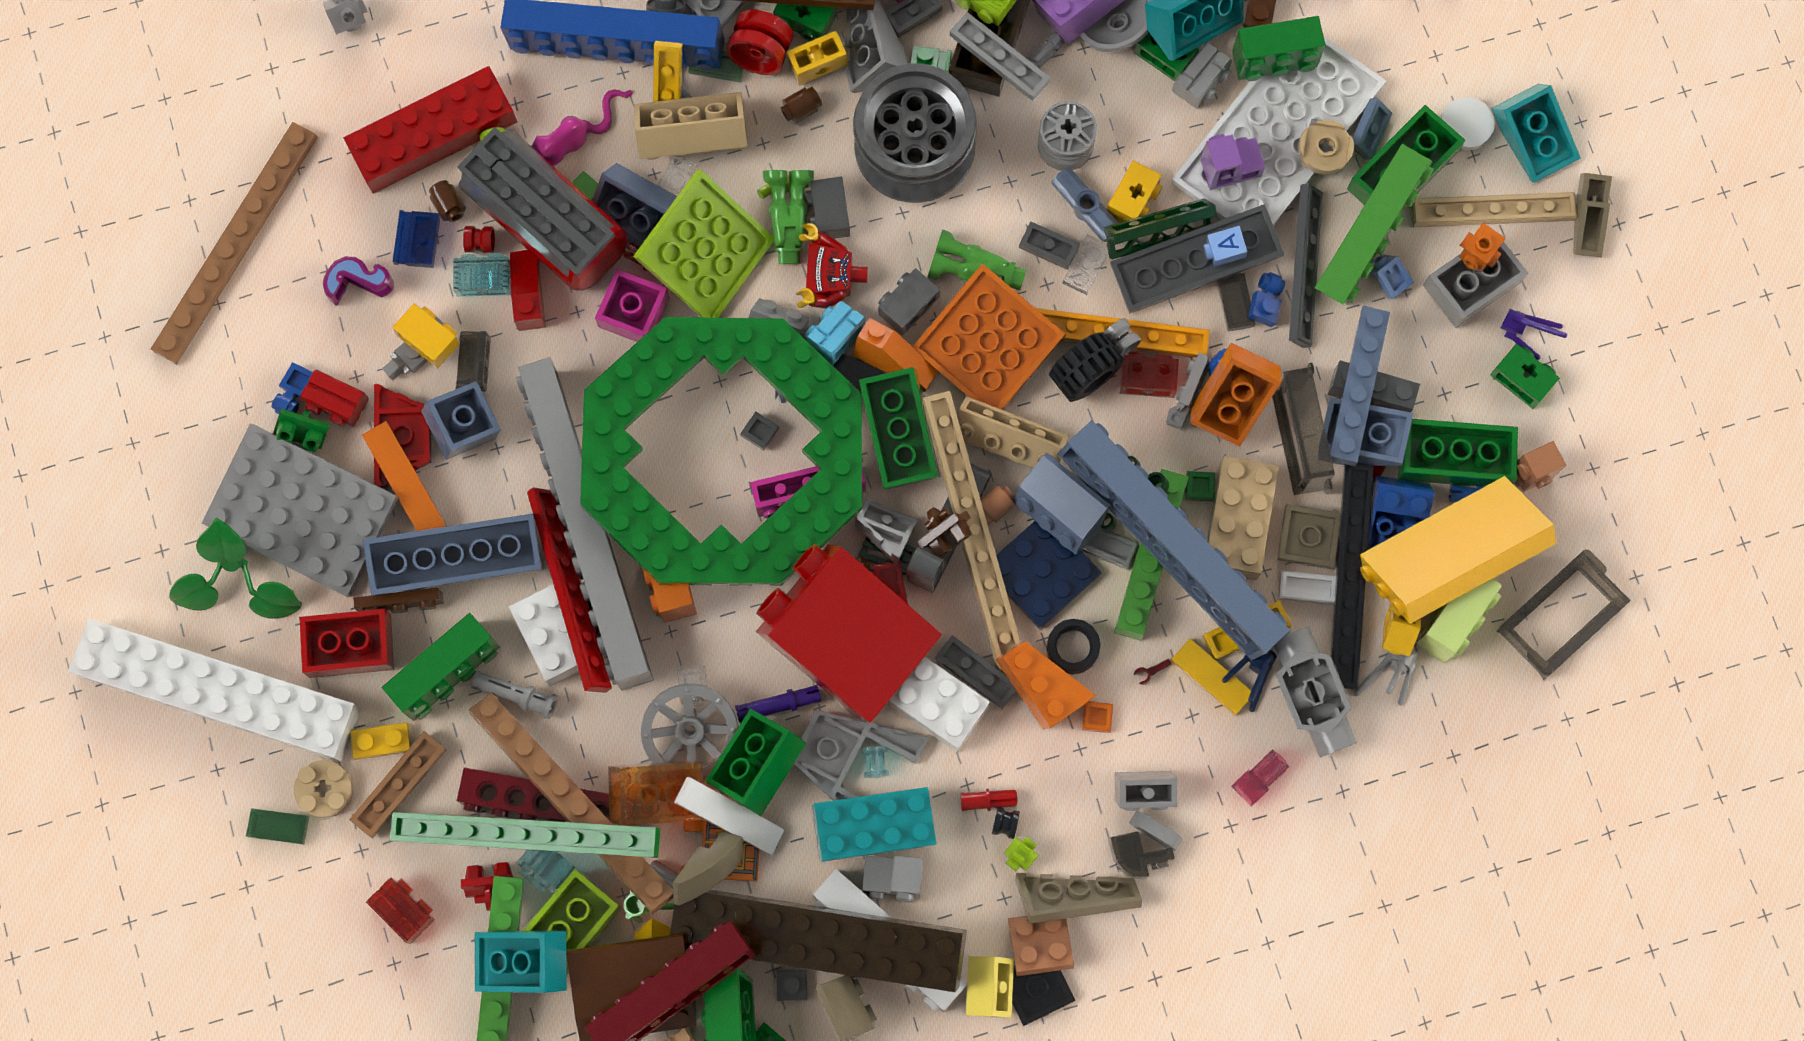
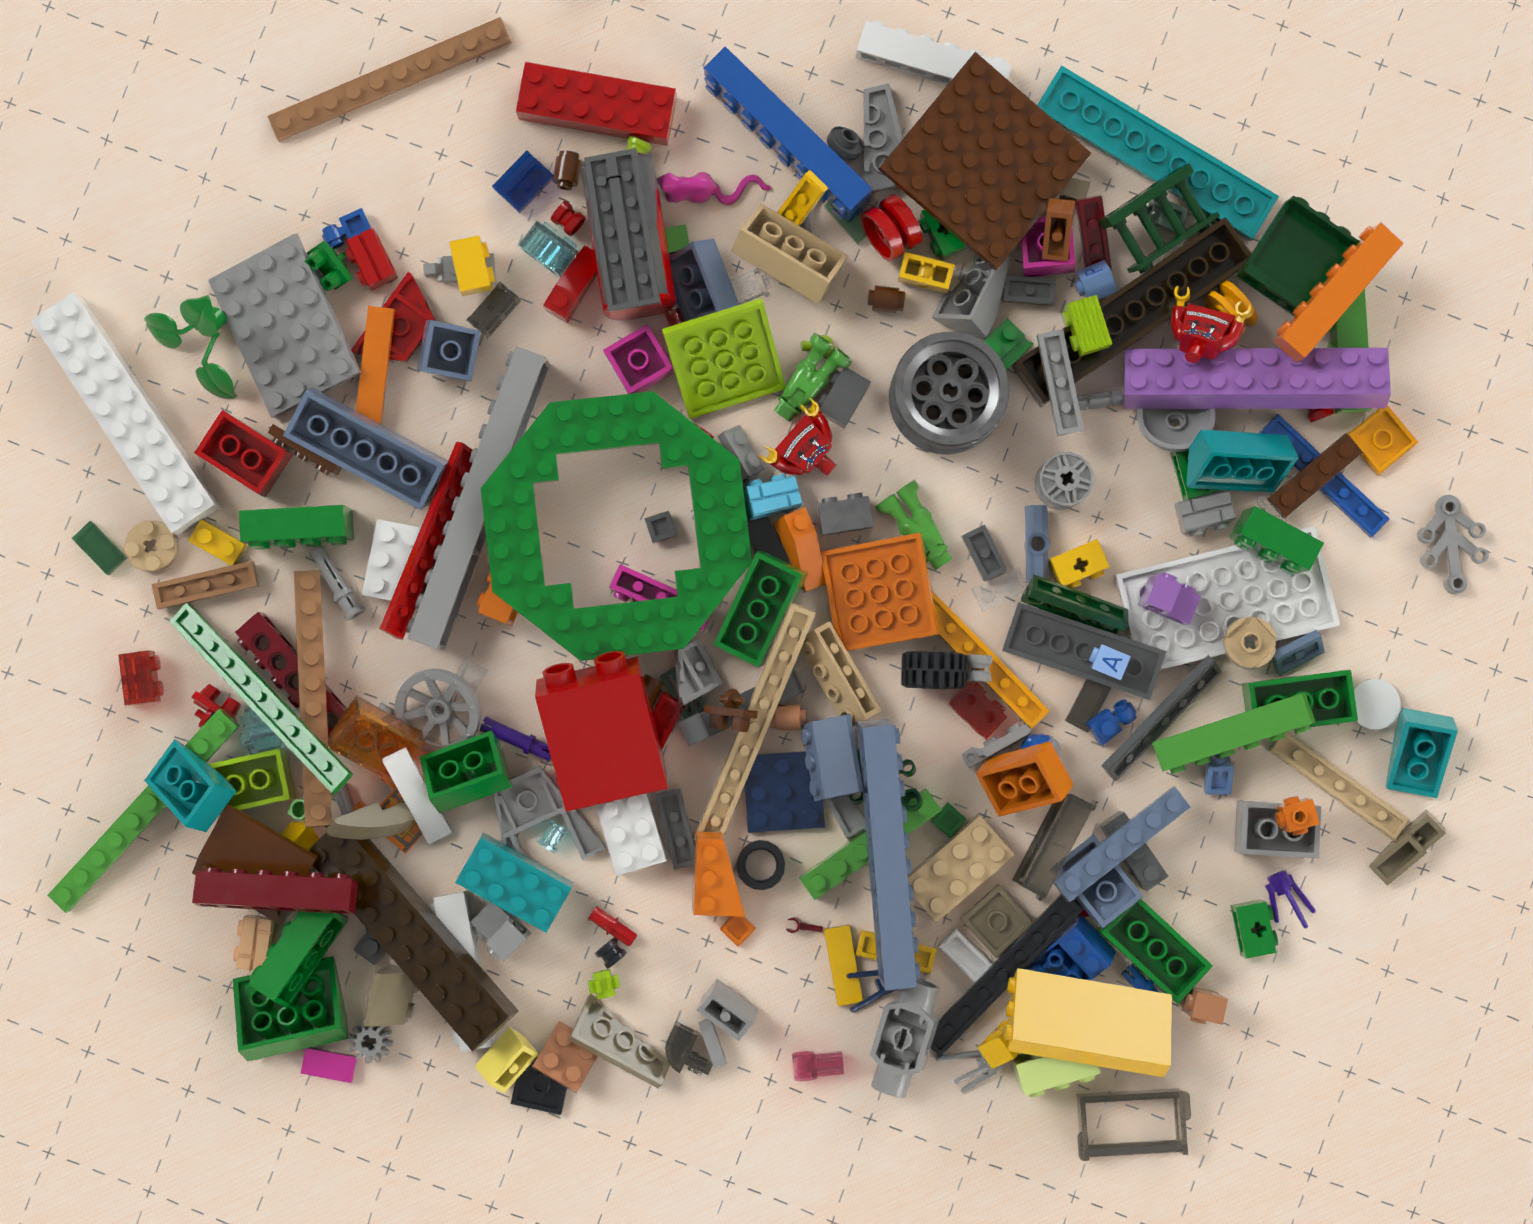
camera: 35 degrees right, 10 degrees up
(354, 271) = (453, 166): magenta animal -> none

